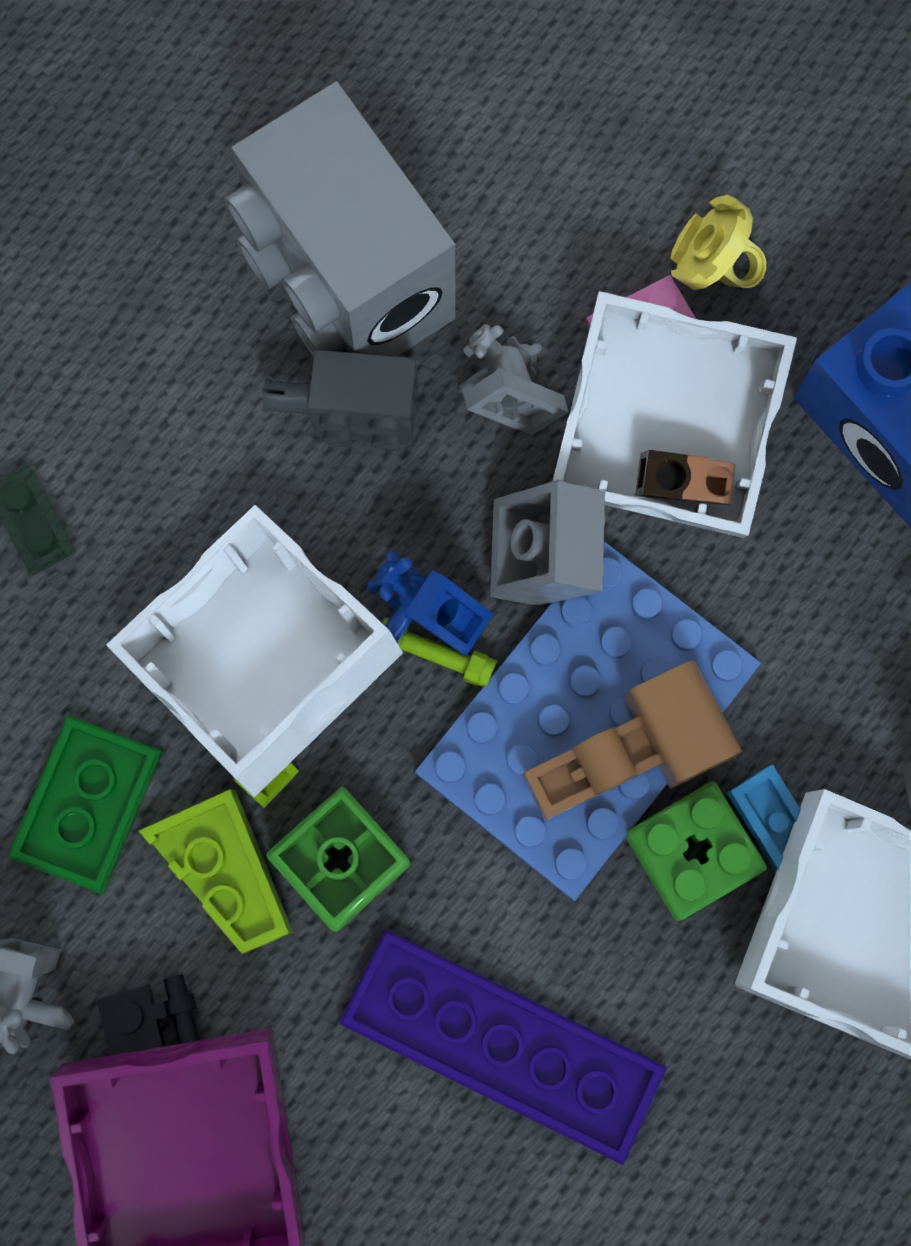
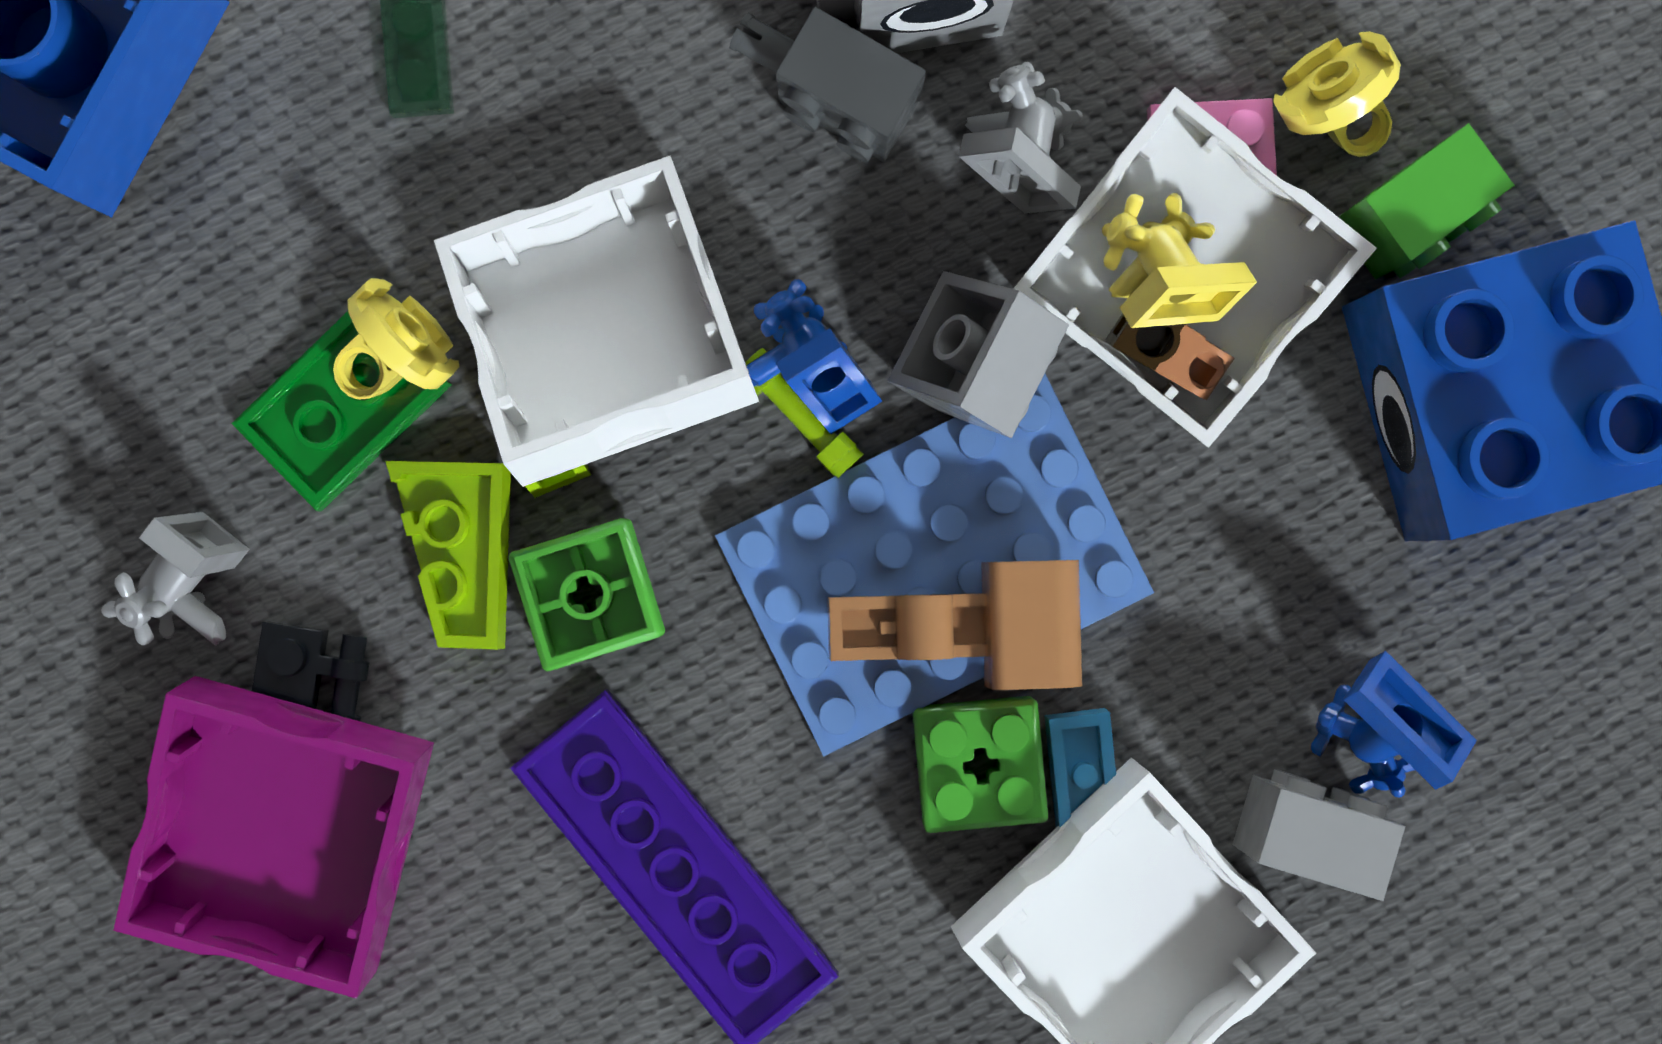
camera: 25 degrees right, 10 degrees up
(109, 732) = (399, 337): none -> light yellow tile
(658, 427) = (1166, 278): none -> light yellow piece
(819, 293) = (1428, 201): none -> bright green brick

